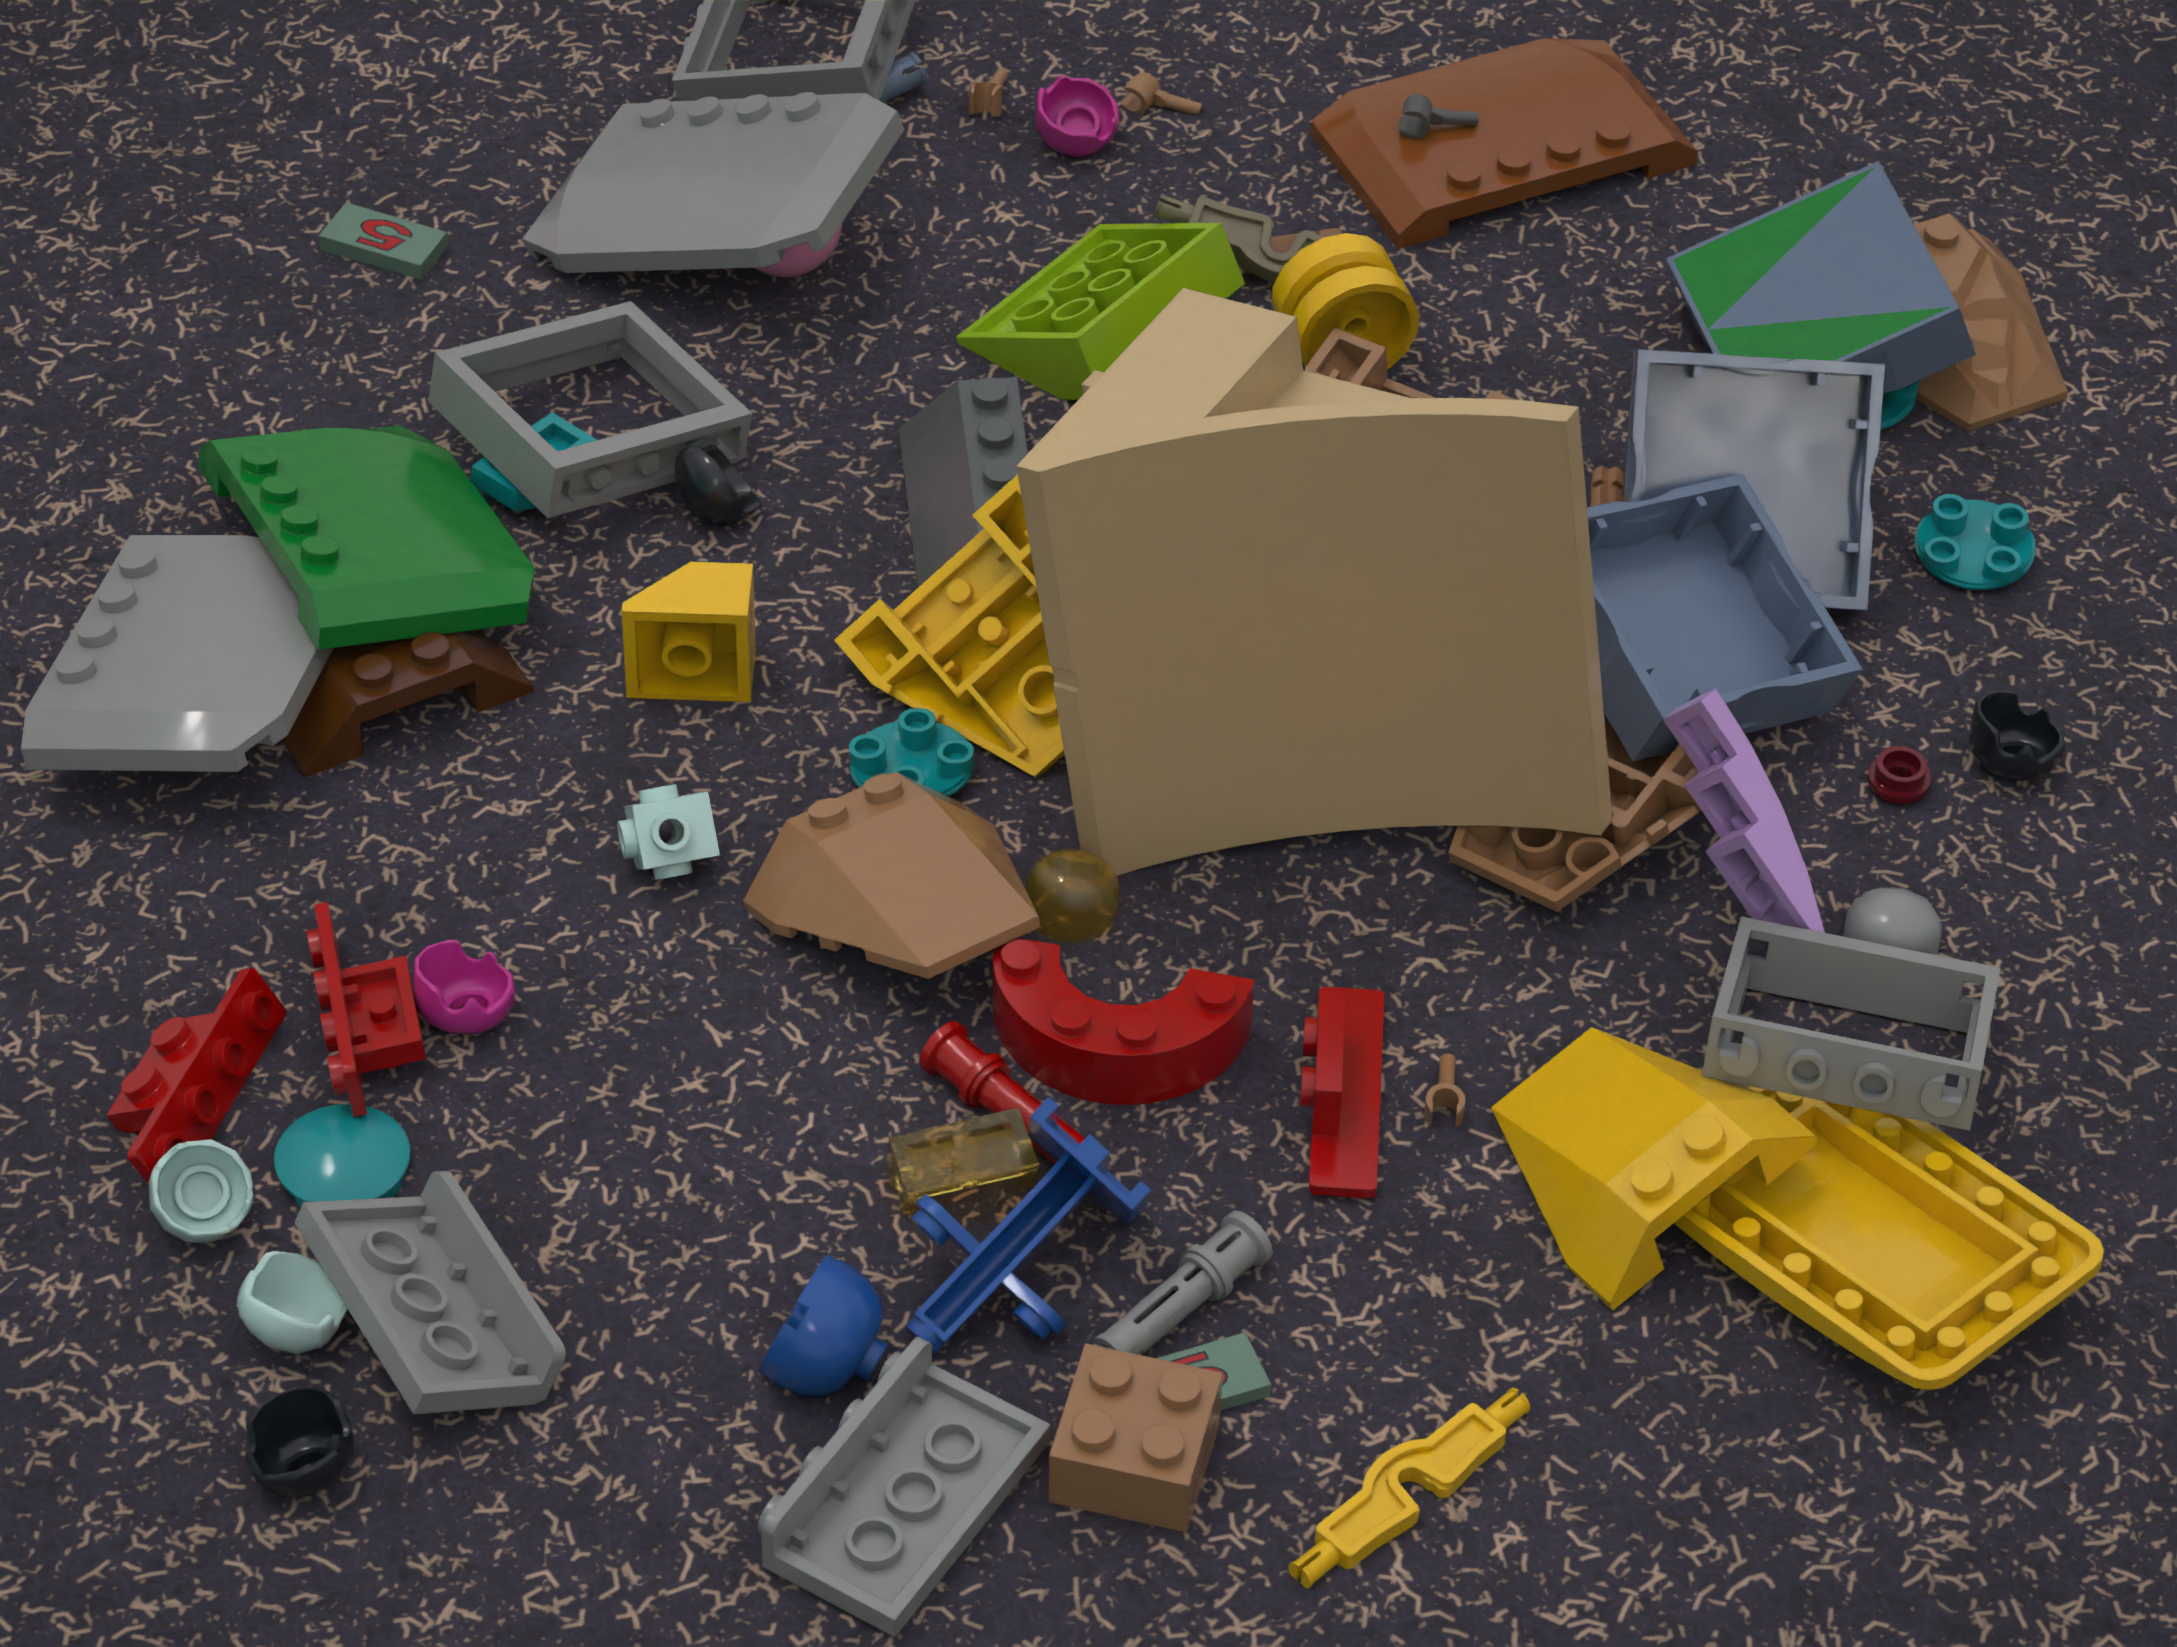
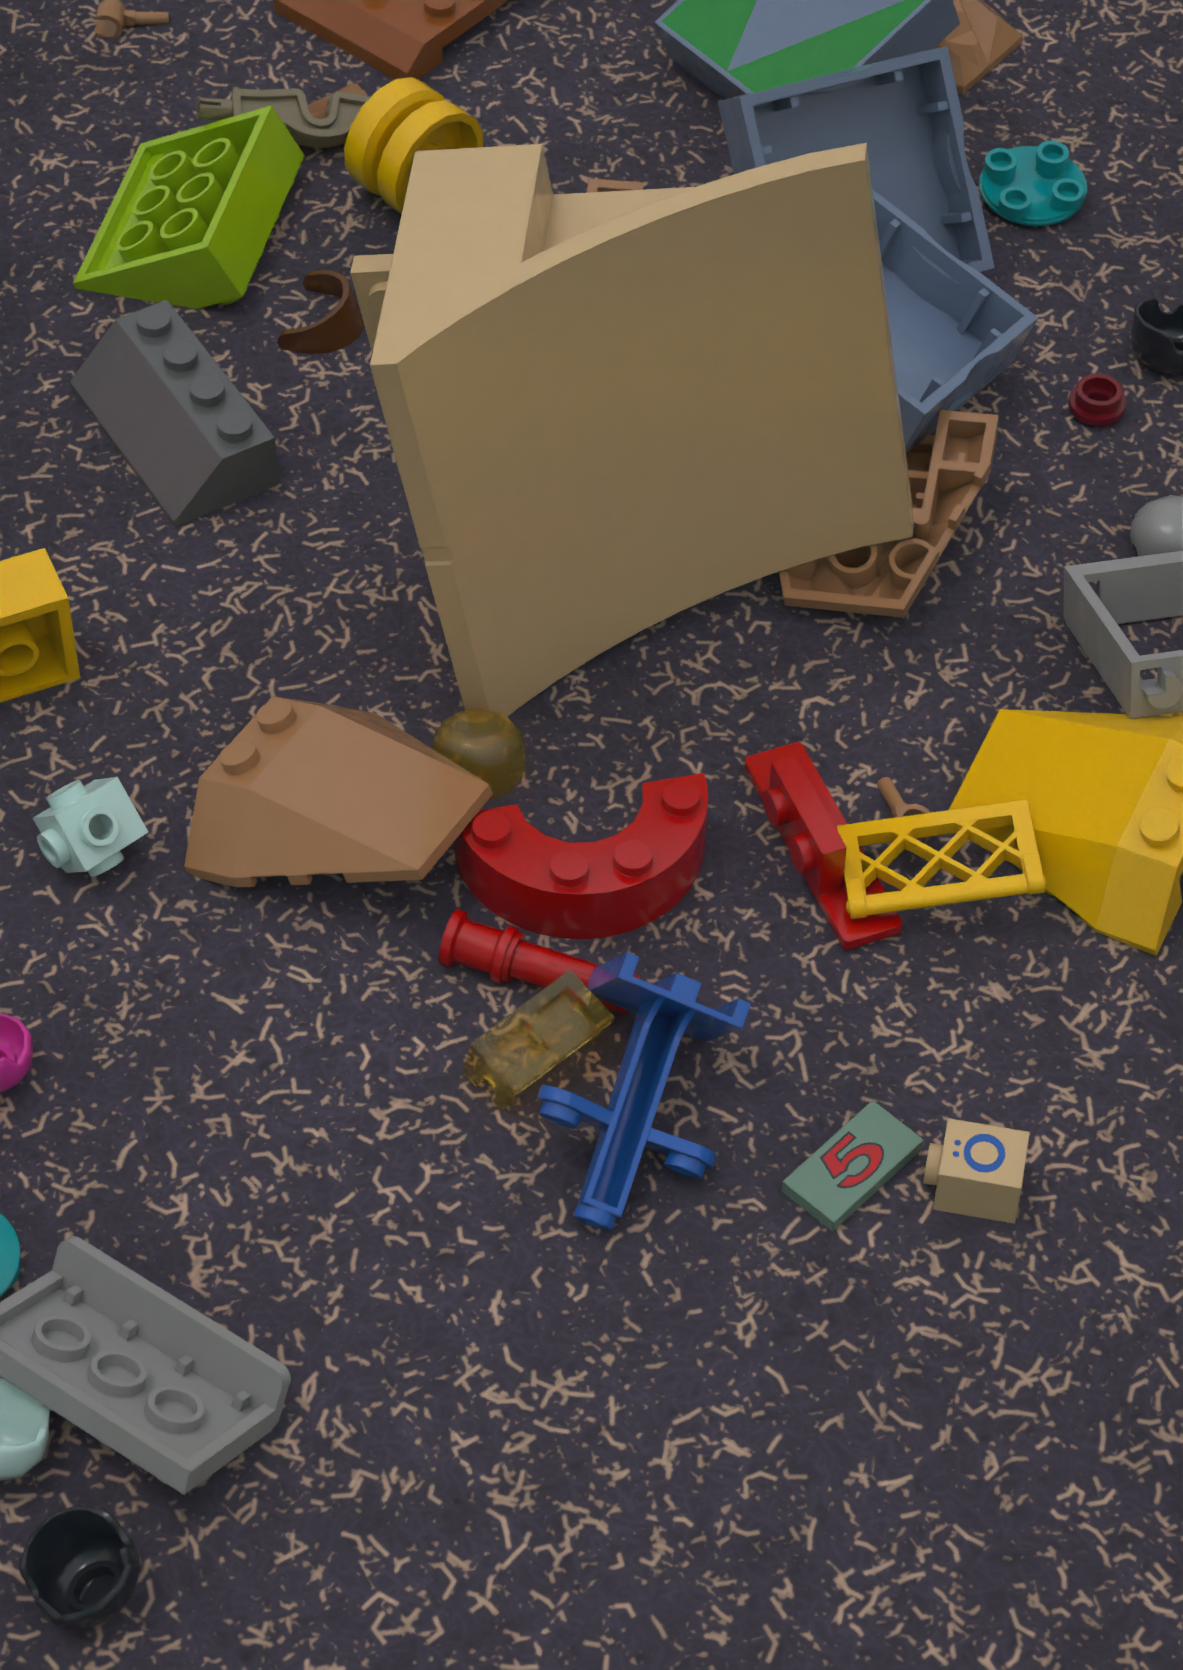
camera: 25 degrees left, 5 degrees up
(828, 1333) = (519, 1247): blue cylinder -> none
(899, 1490) = (666, 1379): light grey bracket -> none
(915, 749) = (258, 669): teal dish -> none
(972, 644) = (289, 541): yellow wedge -> none
(1076, 116) = (70, 54): dark pink hair -> none
(1135, 1437) = (848, 1239): medium nougat brick -> none
(1203, 1274) = (777, 1148): light grey pin -> none
(1301, 1428) = (978, 1170): none -> tan brick
(1384, 1506) = (1082, 1212): yellow piece -> none
(1418, 1106) = (967, 826): none -> yellow window
(1735, 795) = (1024, 468): lavender slope -> none

